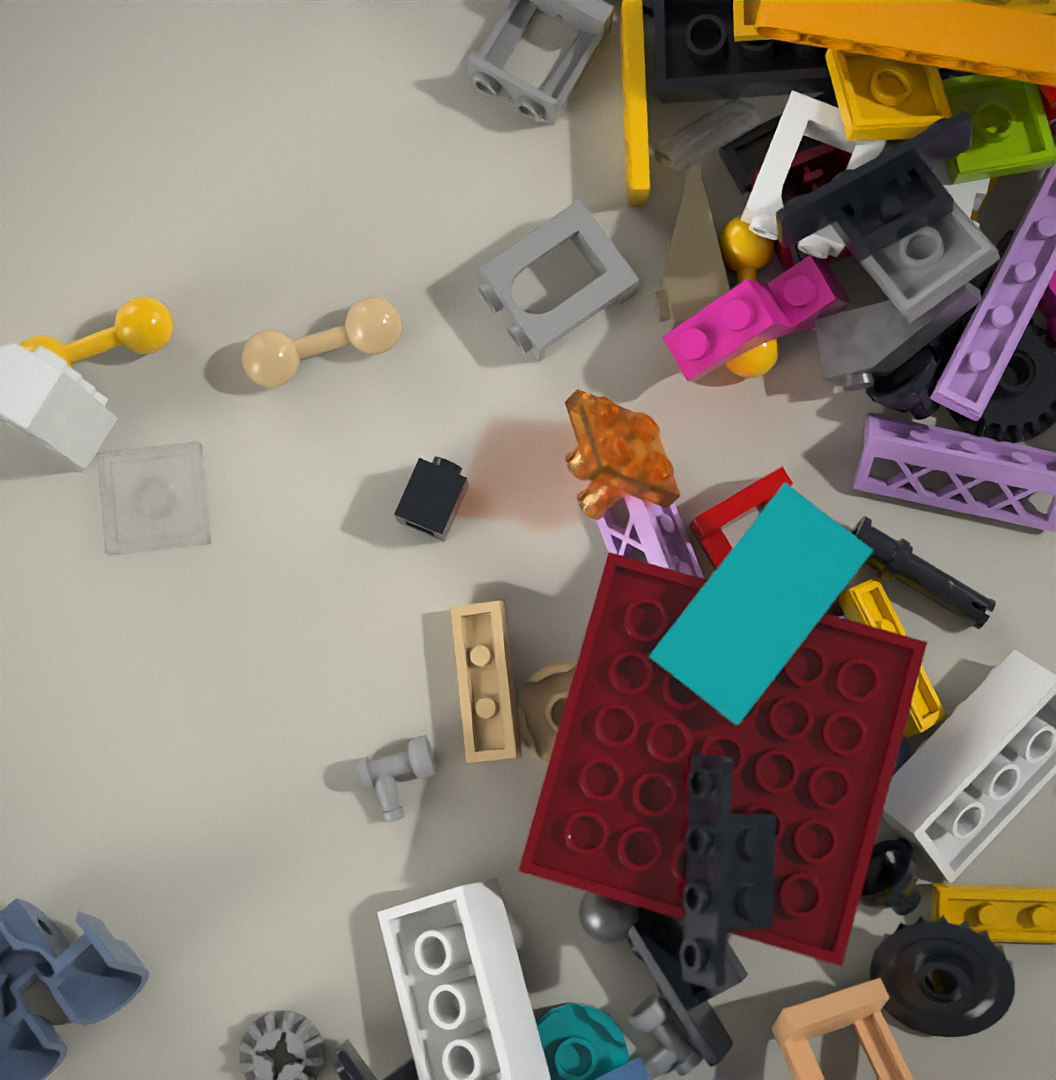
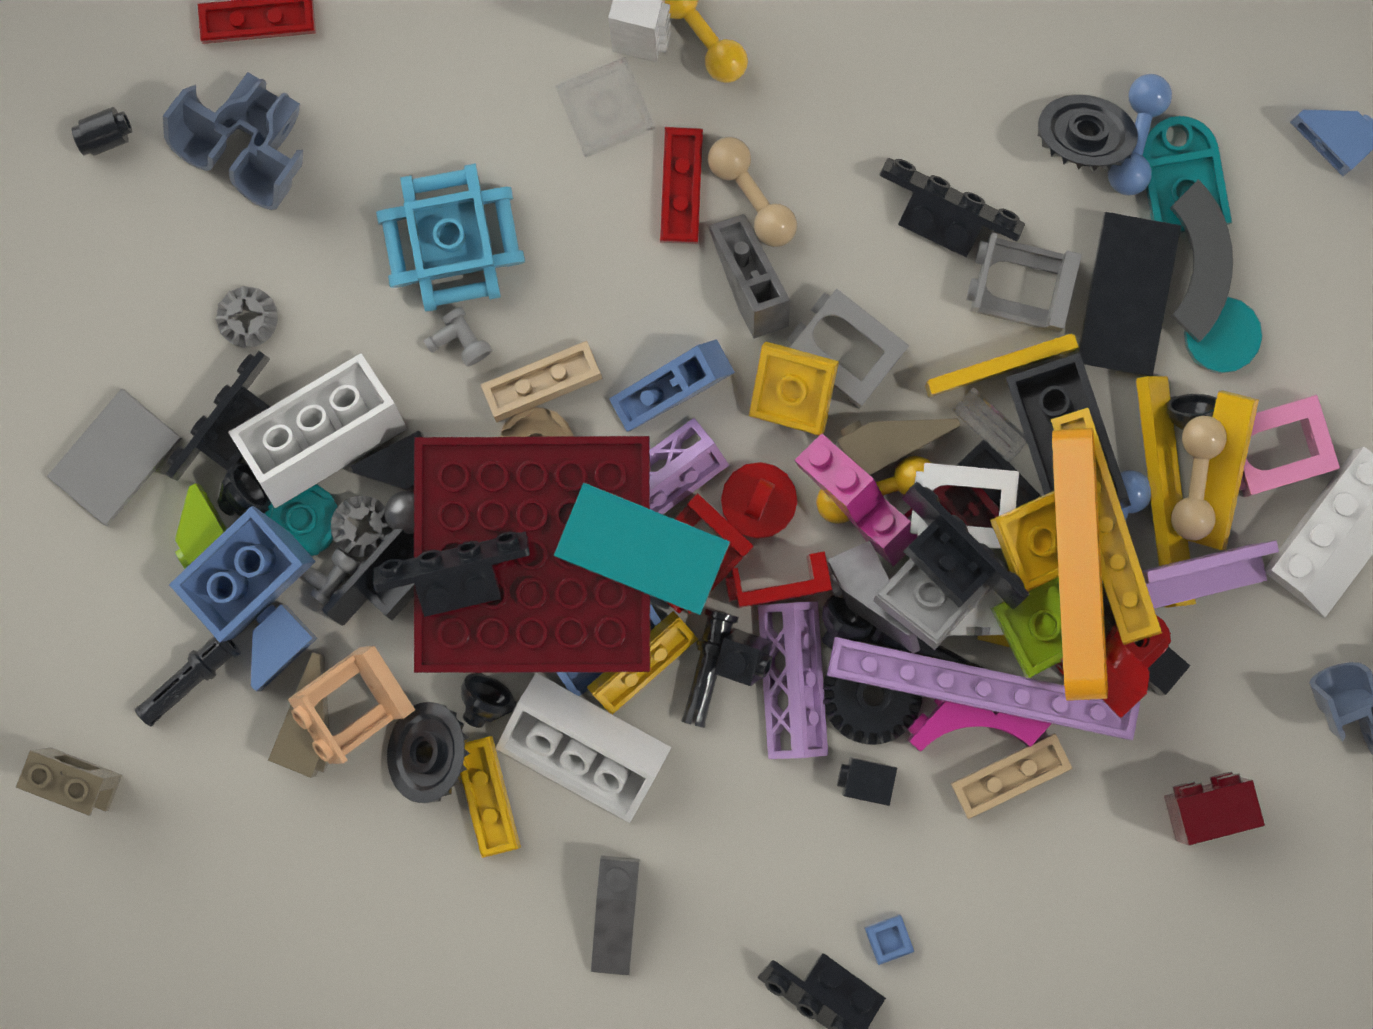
camera: 75 degrees right, 5 degrees up
(258, 747) = (450, 236): none -> medium azure brick
(285, 430) = (681, 185): none -> red tile
(424, 116) = (945, 213): none -> black bracket
(431, 373) = (751, 276): none -> flat silver slope
(432, 497) = (661, 305): black brick -> none
(540, 515) = (672, 384): none -> medium blue slope
(540, 911) = (392, 464): none -> black slope
(590, 352) = (793, 388): none -> yellow tile
(610, 1004) = (344, 532): none -> light grey gear
(617, 453) = (728, 426): clear orange plate -> none
(718, 448) = (759, 500): none -> red tile
(853, 402) = (818, 583): none -> red panel
(924, 520) = (744, 658): none -> black brick

